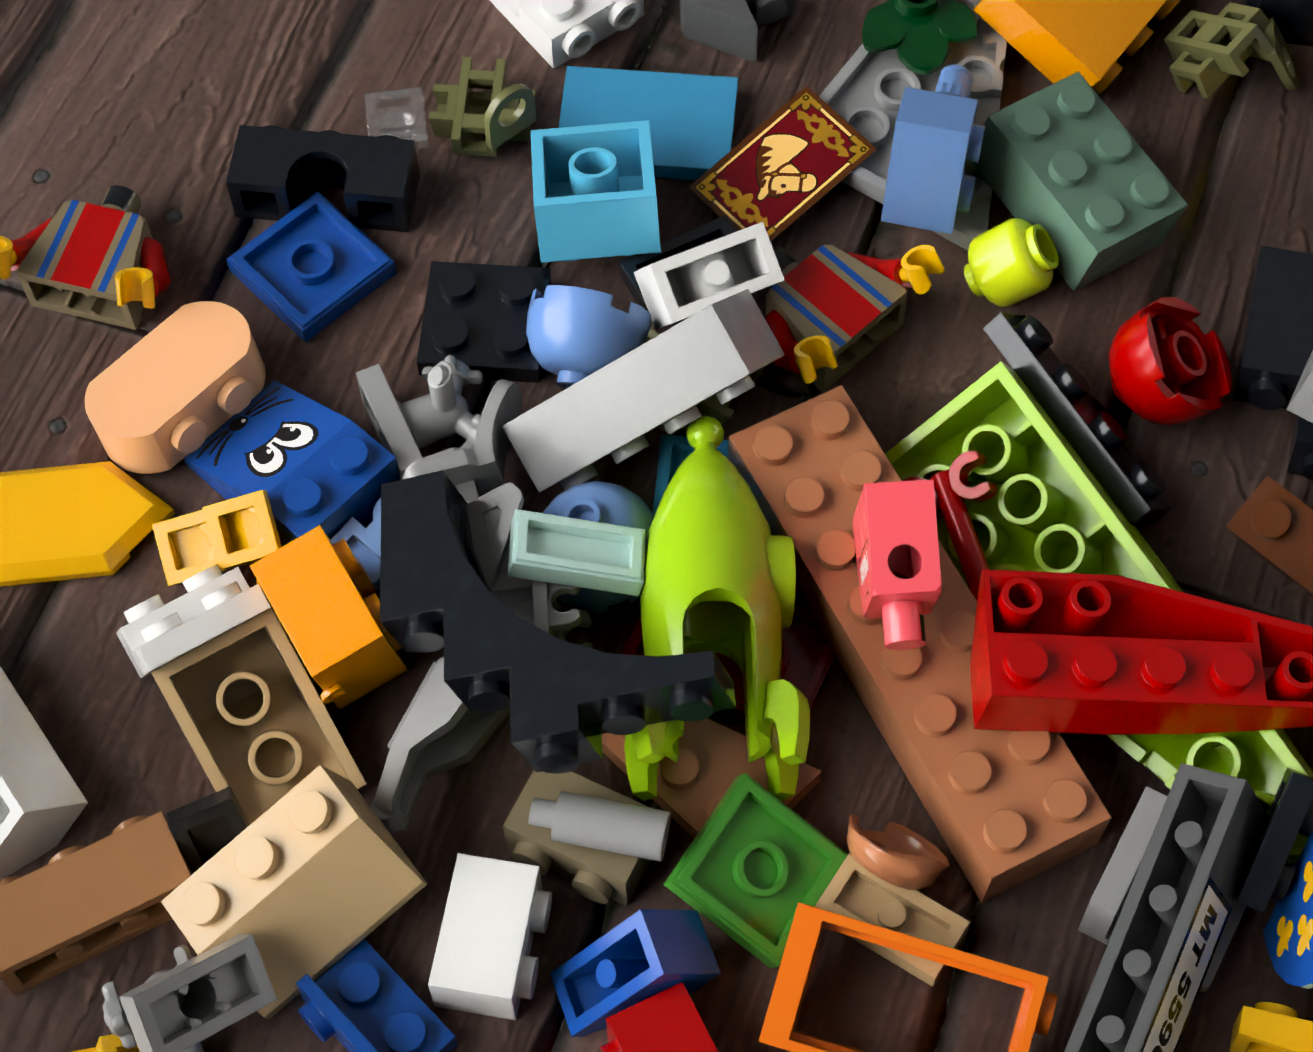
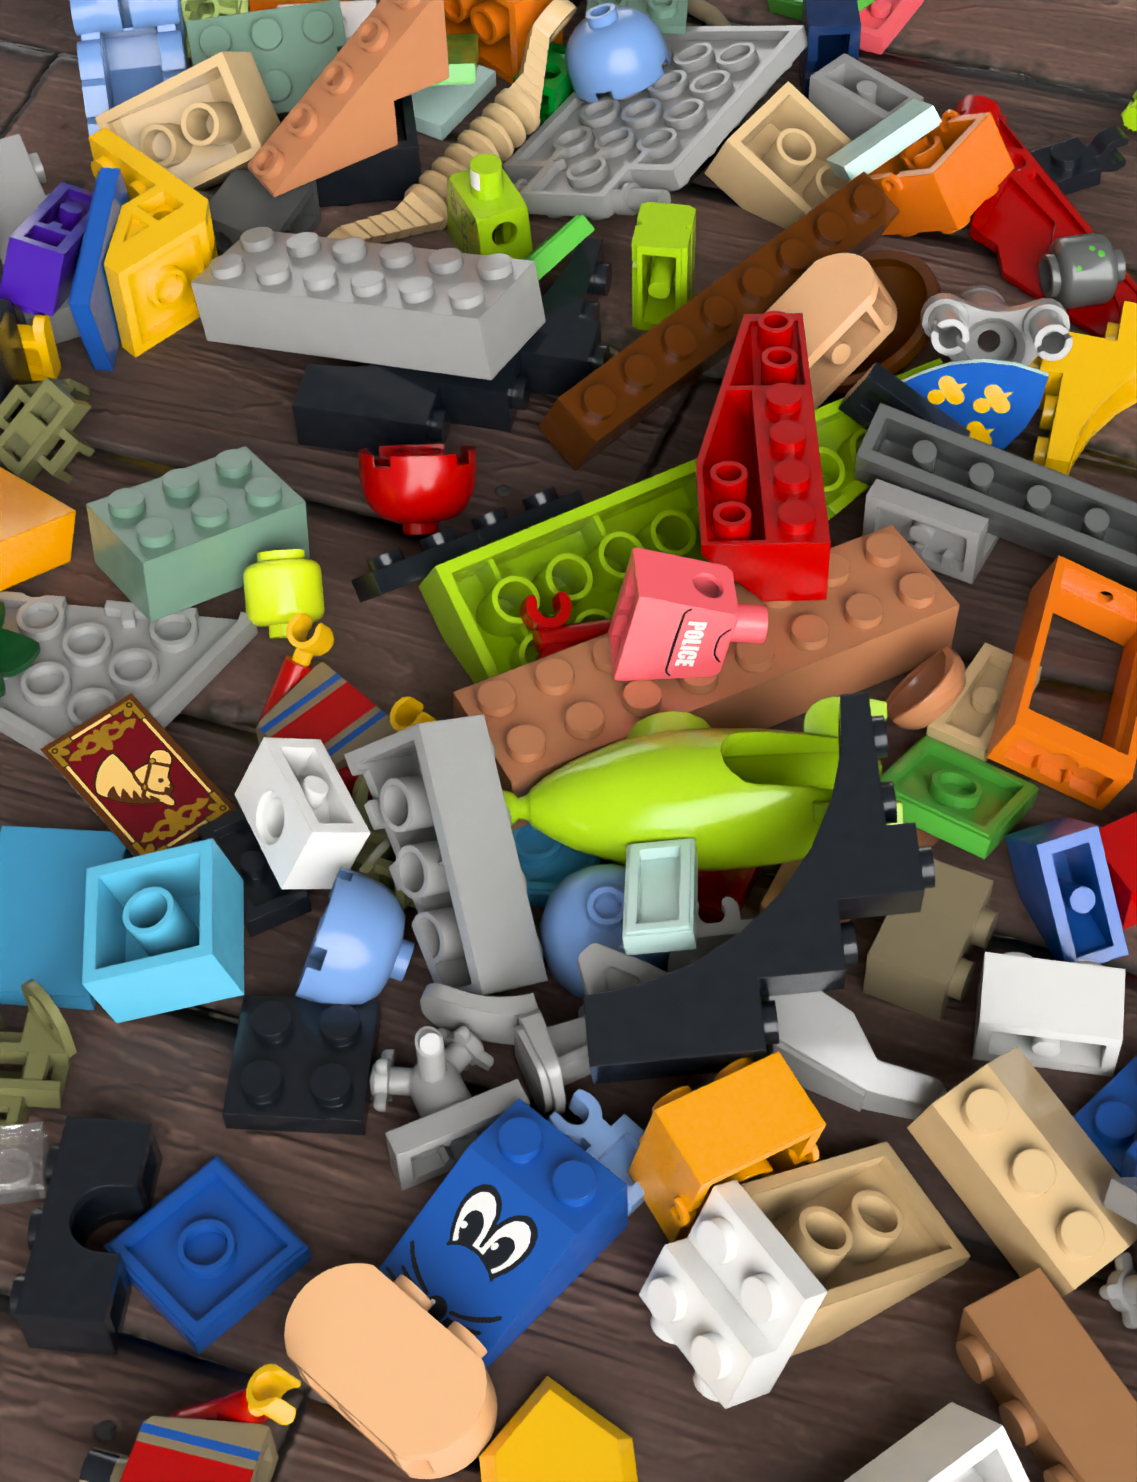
camera: 90 degrees left, 10 degrees down
(206, 826) = (969, 1261): black plate -> none
(220, 534) = (606, 1300): yellow slope -> none
(603, 824) = (947, 905): light grey cylinder -> none
(931, 154) = (168, 609): medium blue brick -> none

